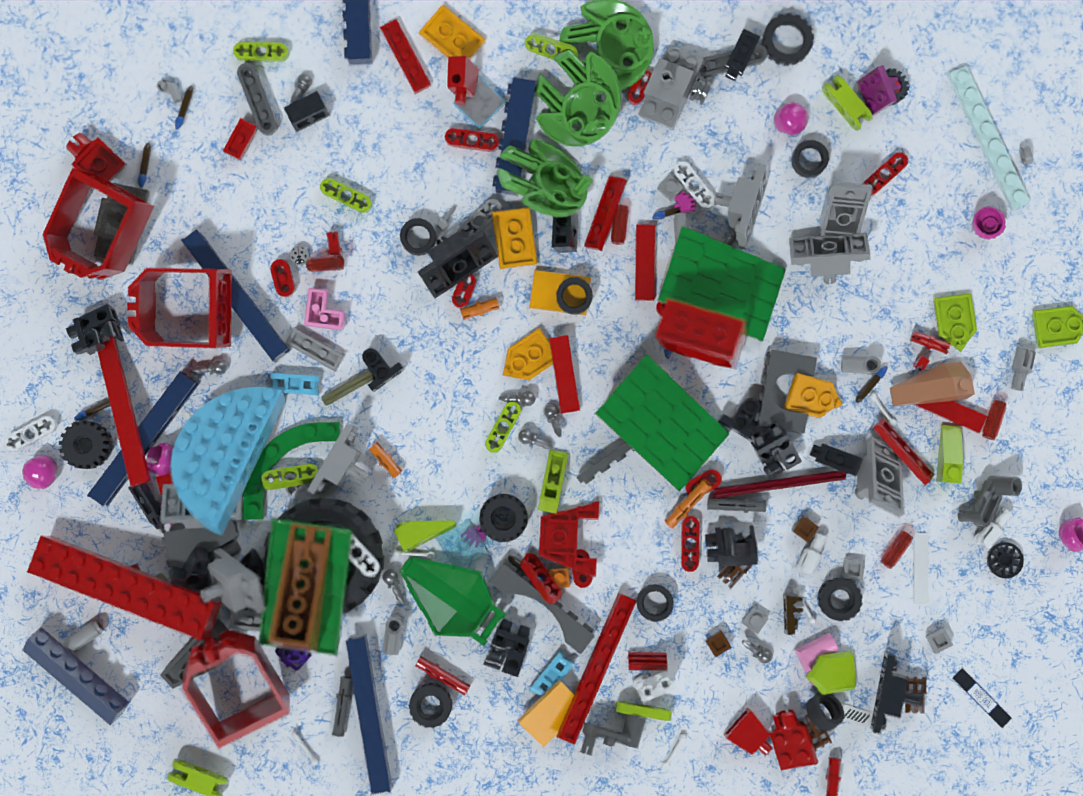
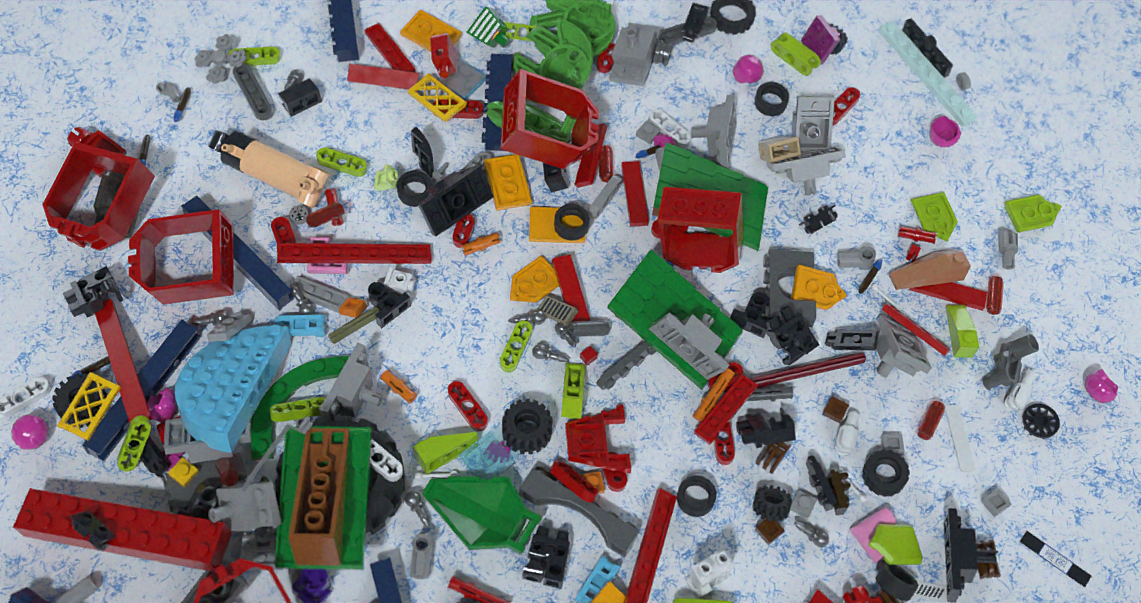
camera: 10 degrees left, 25 degrees down
(97, 592) = (87, 524): none -> black hinge
(107, 459) = (101, 412): none -> yellow window
(138, 491) = (135, 452): none -> lime beam
(179, 535) = (183, 472): none -> yellow plate
(218, 547) = (226, 472): none -> clear red piece
(224, 53) = (219, 57): none -> light grey plant
(225, 388) = (229, 327): none -> light grey plate
(240, 139) = (238, 120): red plate -> none
(271, 200) = (270, 166): none -> light nougat piece
(291, 522) = (304, 427): none -> light grey piece
(301, 363) = (305, 307): none -> flat silver bar
(346, 370) = (352, 307): none -> orange plate
(351, 312) = (354, 253): none -> red tile
(386, 345) = (399, 282): none -> white brick
(389, 224) = (386, 178): none -> yellowish green bracket
(395, 93) = (382, 76): none -> red tile
(429, 200) = (422, 149): none -> black slope
(448, 471) = (467, 414): none -> red beam
(454, 112) = (453, 109): none -> yellow window
(515, 43) = (489, 28): none -> green torso
(525, 181) = (555, 95): none -> red container
(547, 395) = (557, 310): none -> dark tan tile
(572, 444) = (588, 355): none -> red piece
(576, 418) = (588, 328): none -> dark grey piece
(613, 265) = (605, 196): none -> light grey beam
(647, 661) = (695, 555): red tile -> none
(674, 456) = (692, 342): none -> light grey brick
(697, 520) = (725, 409): none -> red tile
(731, 613) = (772, 503): none -> black tyre
(773, 601) = (819, 481): none -> black hinge
(803, 231) = (773, 149): none -> tan torso
(823, 315) = (812, 221): none -> black hinge
(996, 107) = (928, 47): none -> black hinge

